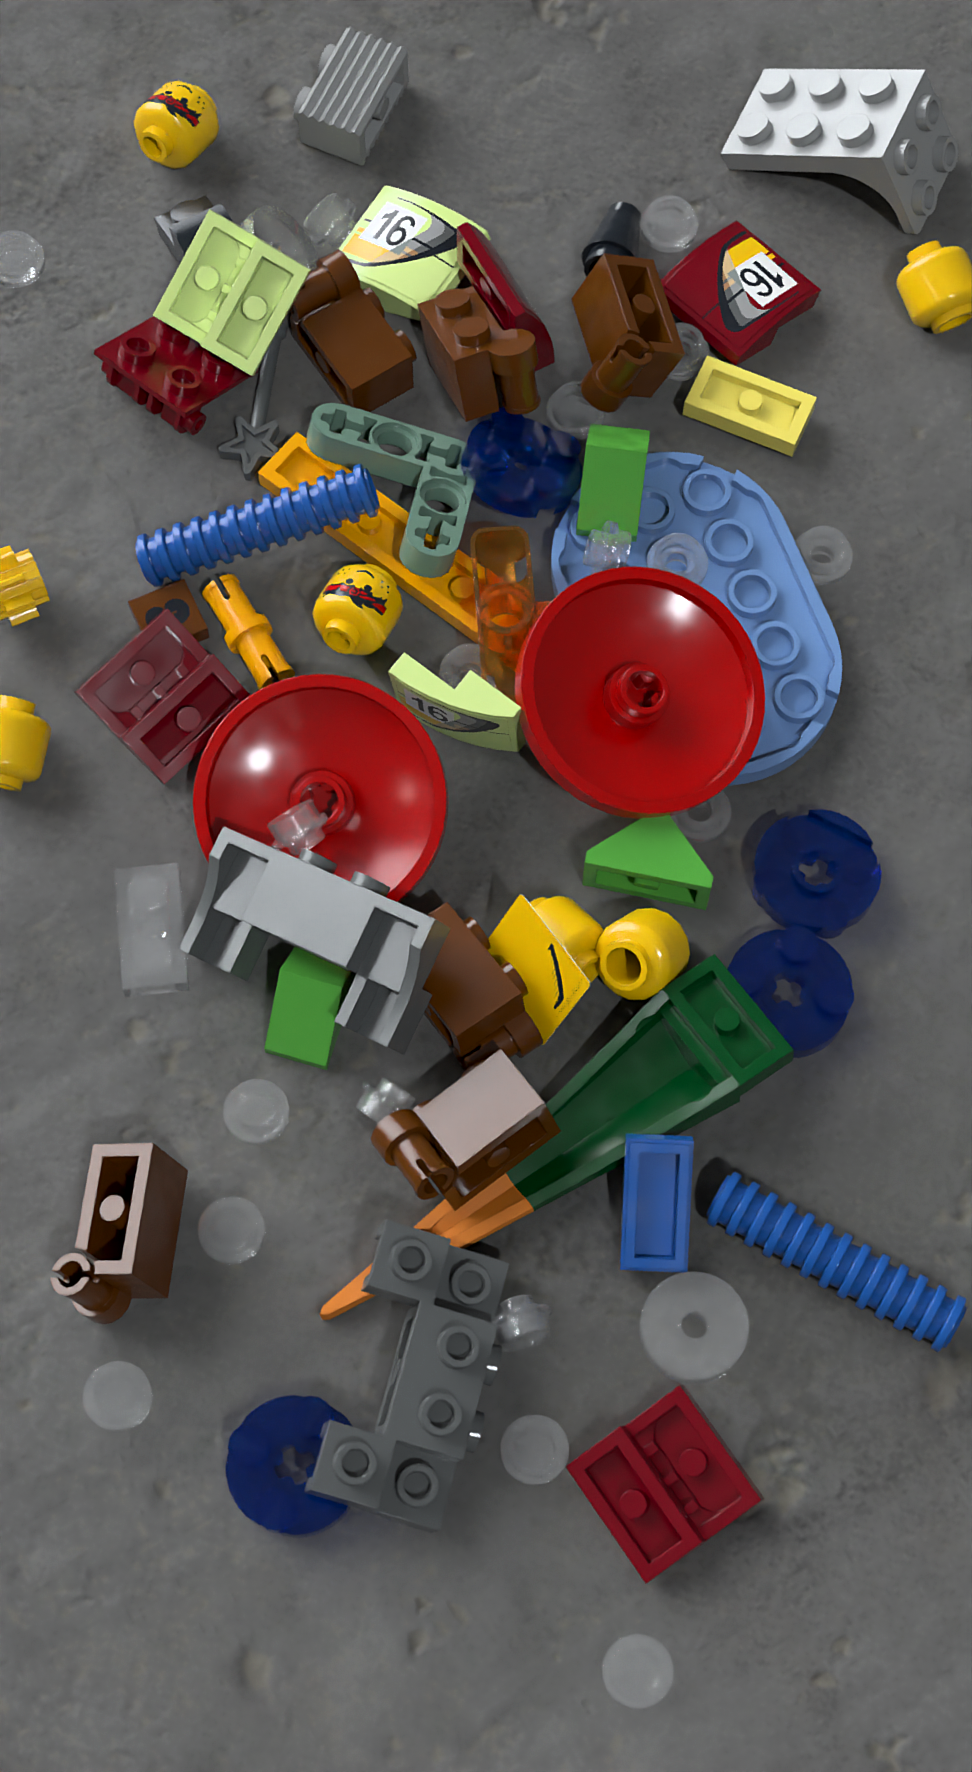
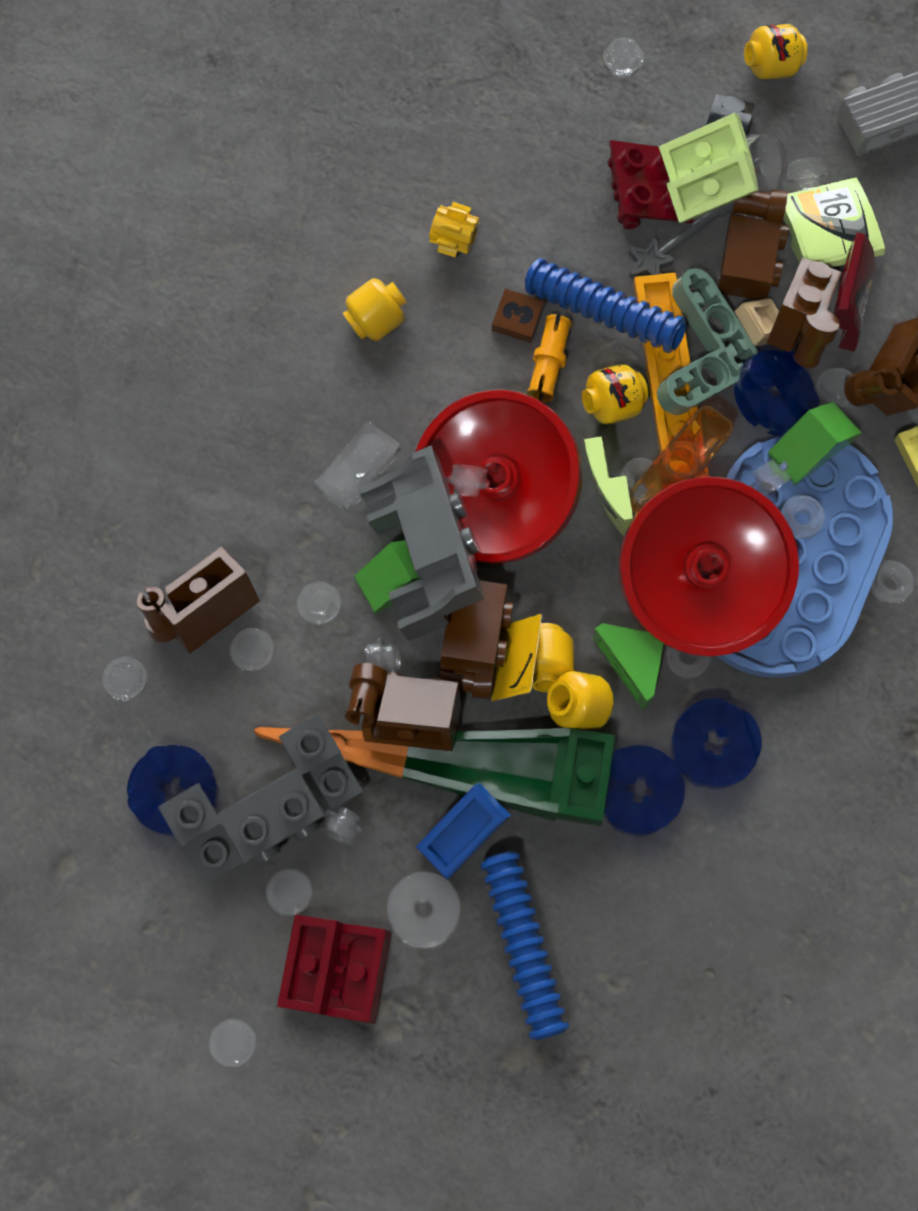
camera: 45 degrees right, 5 degrees up
(162, 695) = (475, 352): dark red slope -> none
(430, 408) = (758, 319): none -> tan tile

